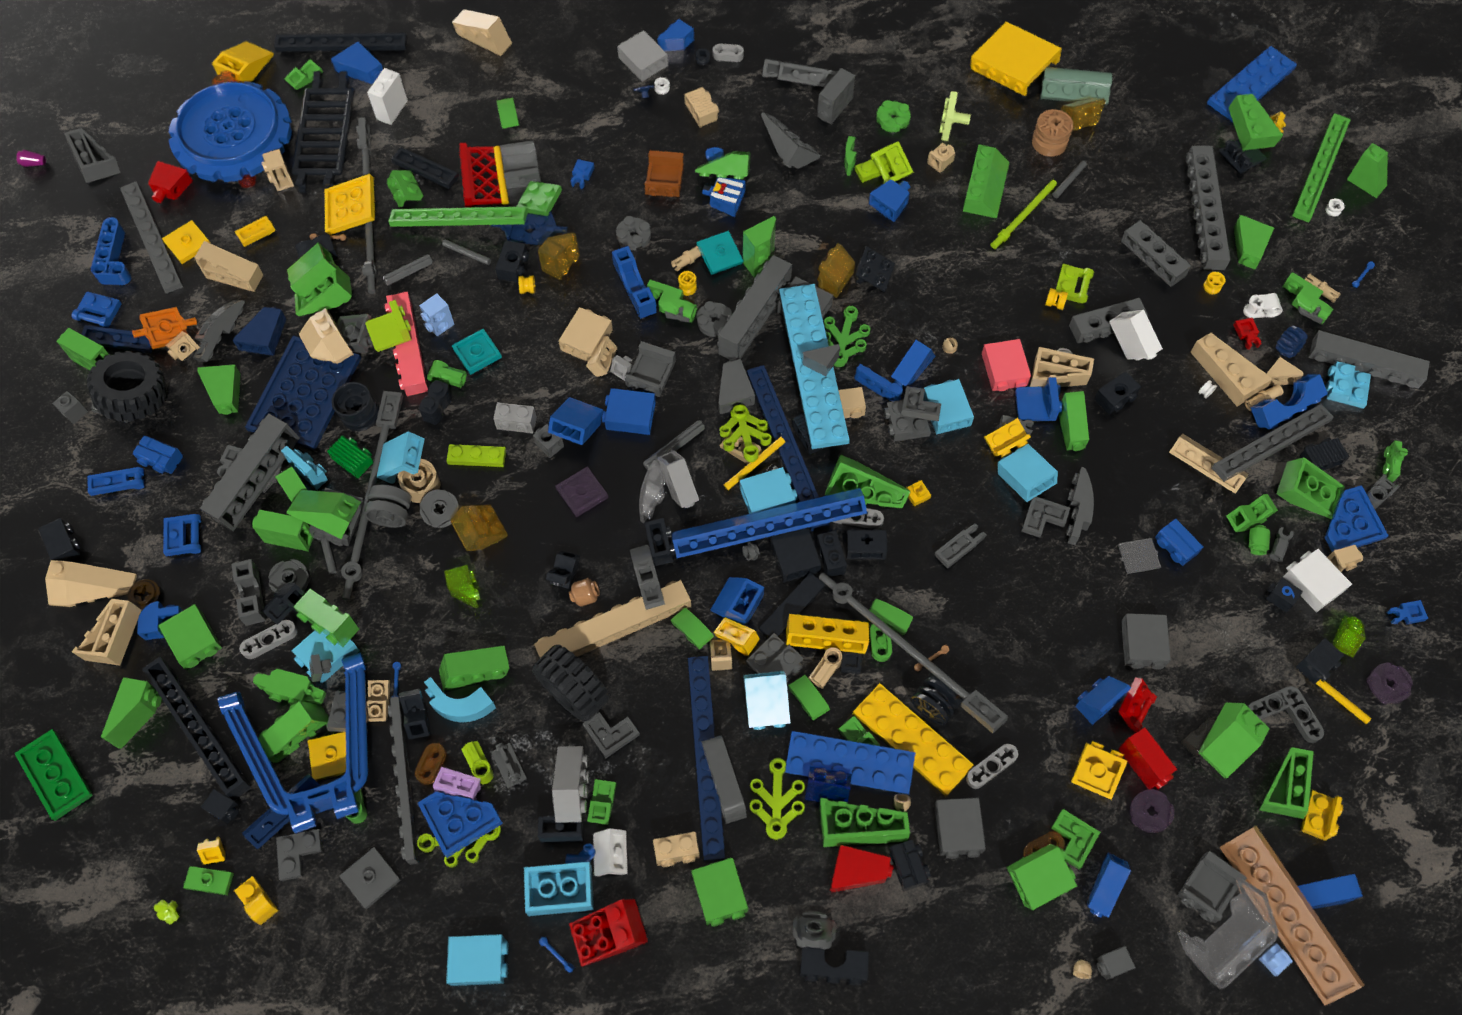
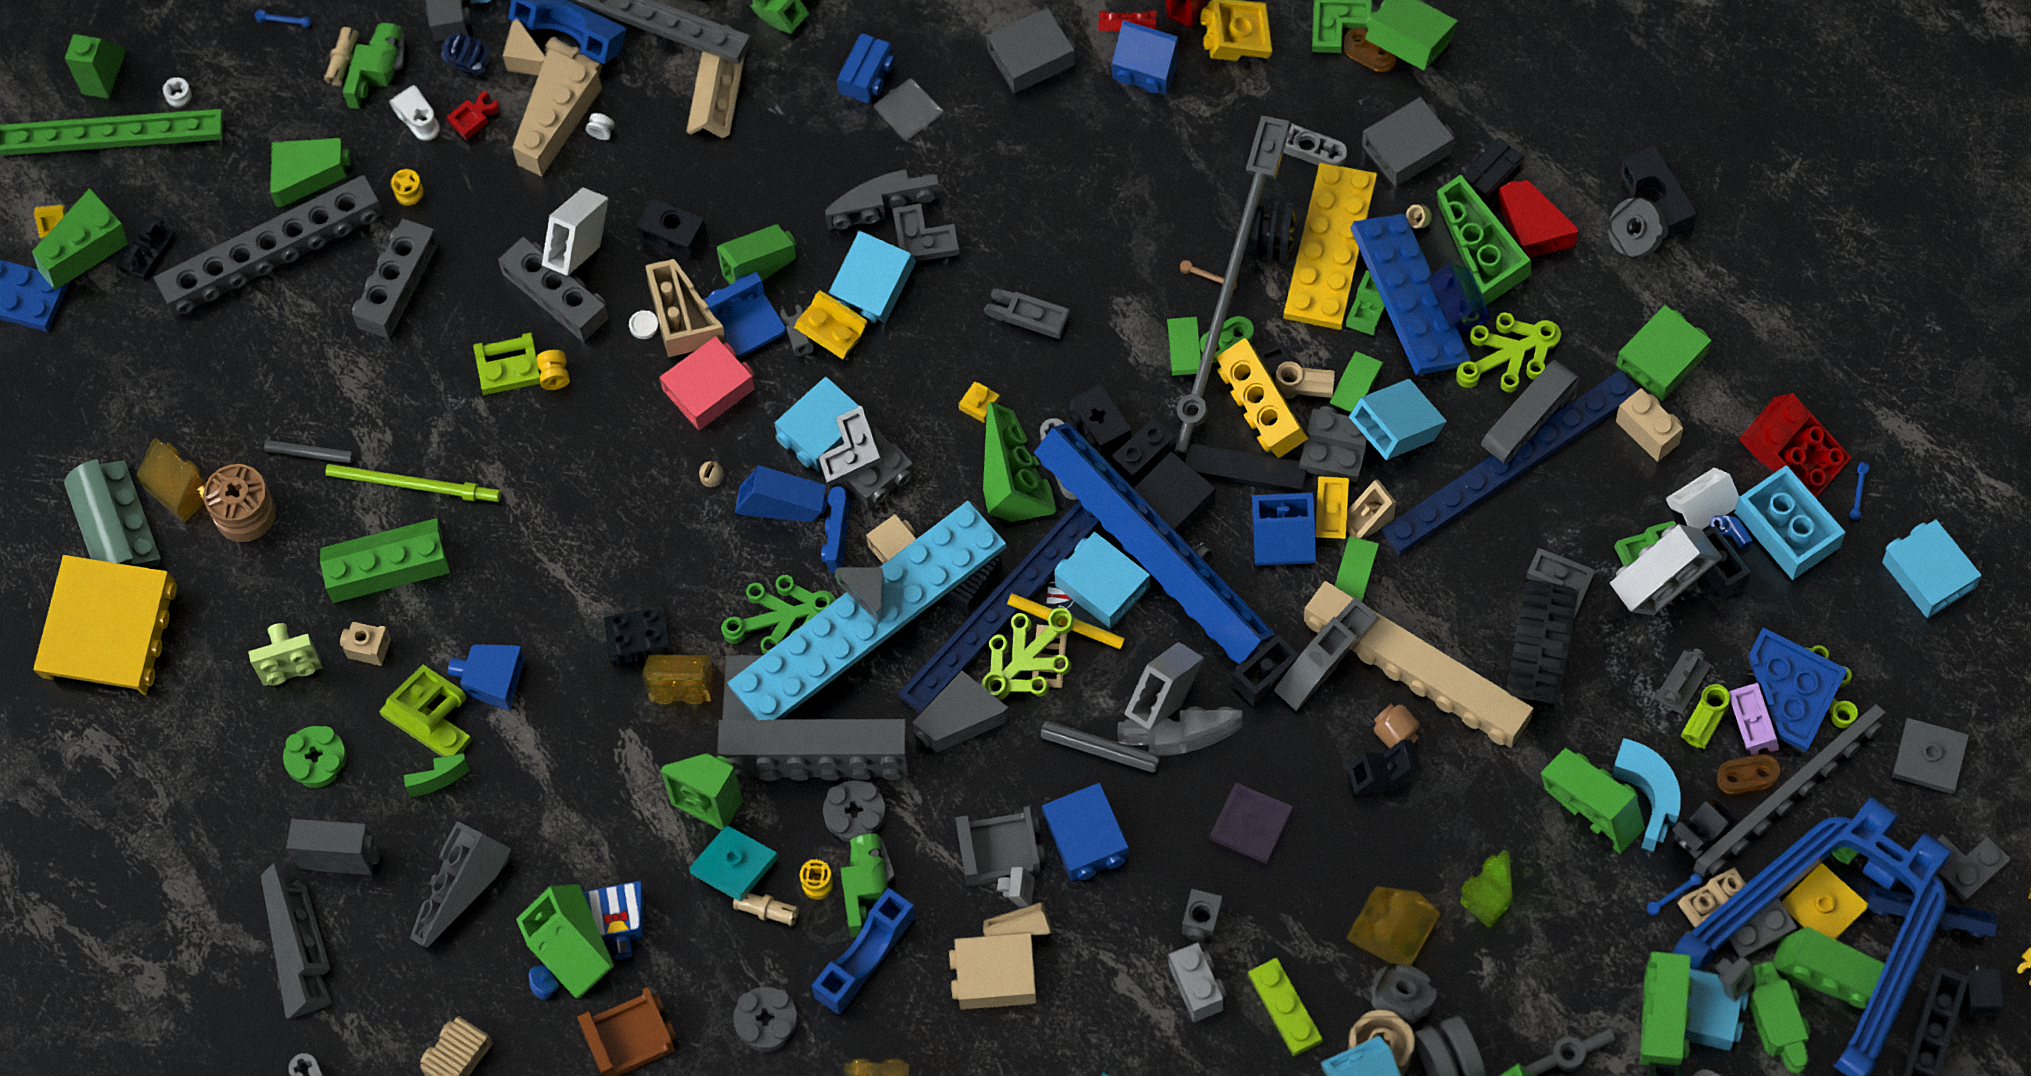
camera: 115 degrees left, 0 degrees up
(575, 421) = (1153, 885): blue brick -> none

